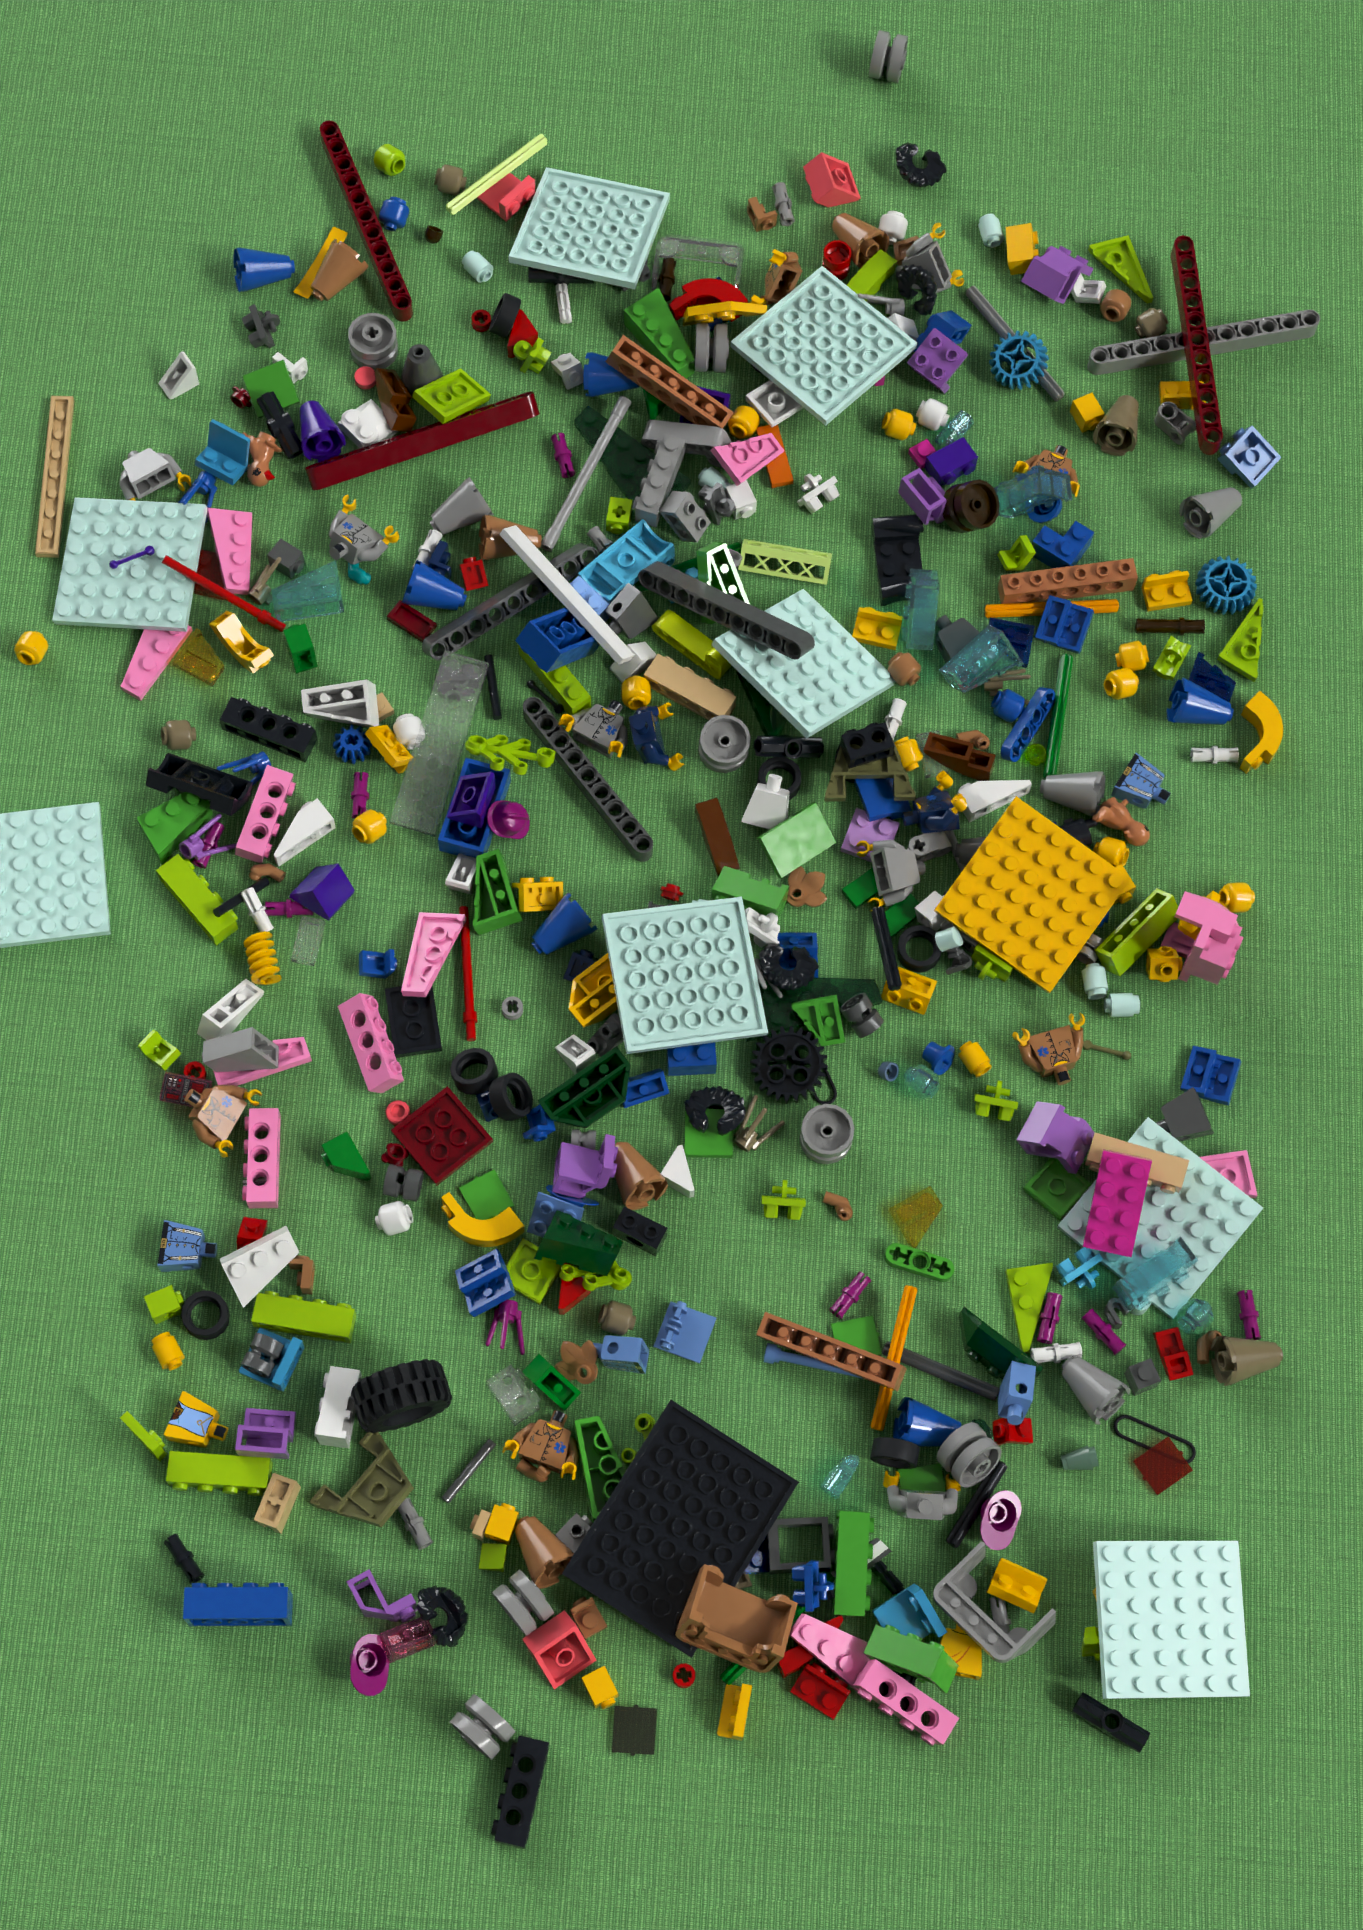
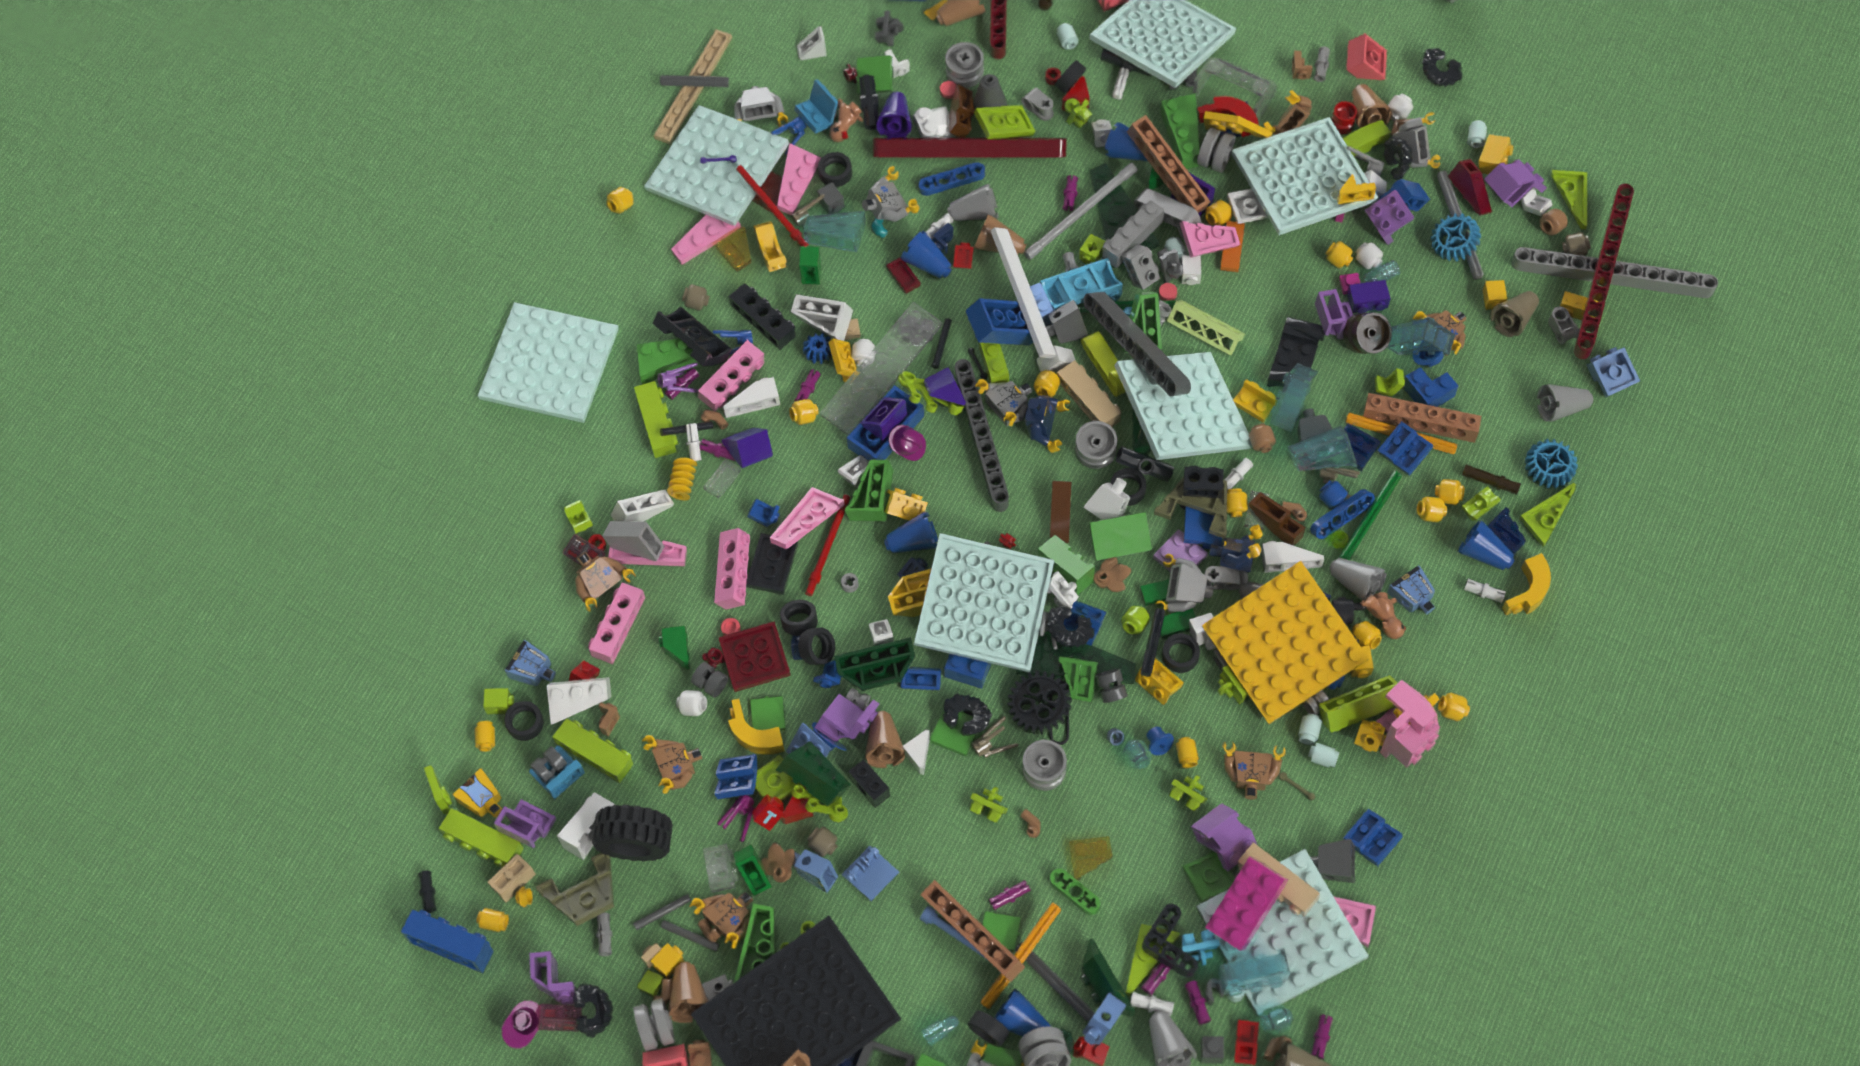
camera: 30 degrees right, 5 degrees down
(55, 469) = (702, 81): none -> dark grey axle
(269, 506) = (835, 157): none -> black tyre
(277, 1560) = (492, 920): none -> yellow brick
(301, 1518) = (524, 897): none -> yellow plate
(404, 1294) = (673, 762): none -> medium nougat torso
(415, 483) = (953, 182): none -> blue beam
(479, 359) = (1038, 104): none -> light grey piece
(500, 604) = (972, 282): dark grey beam -> none
(517, 1561) = (666, 991): none -> medium nougat arm
(524, 738) = (944, 387): none -> dark purple slope
(529, 1485) = (689, 935): none -> dark grey bar
(541, 1309) = (768, 812): none -> red brick
(607, 1036) = (907, 628): dark grey hips -> none
(667, 278) = (1207, 90): dark brown pin -> none
(725, 533) = (1168, 291): none -> coral tile
(811, 500) = (1261, 283): white hips -> none
(854, 930) = (1135, 620): none -> lime head
(890, 347) = (1353, 193): none -> yellow slope
(950, 941) = (1205, 655): leg -> none
(1008, 291) = (1471, 185): none -> dark red slope
(1038, 1281) = (1160, 941): none -> black beam
(1166, 590) = (1500, 451): yellow bracket -> none

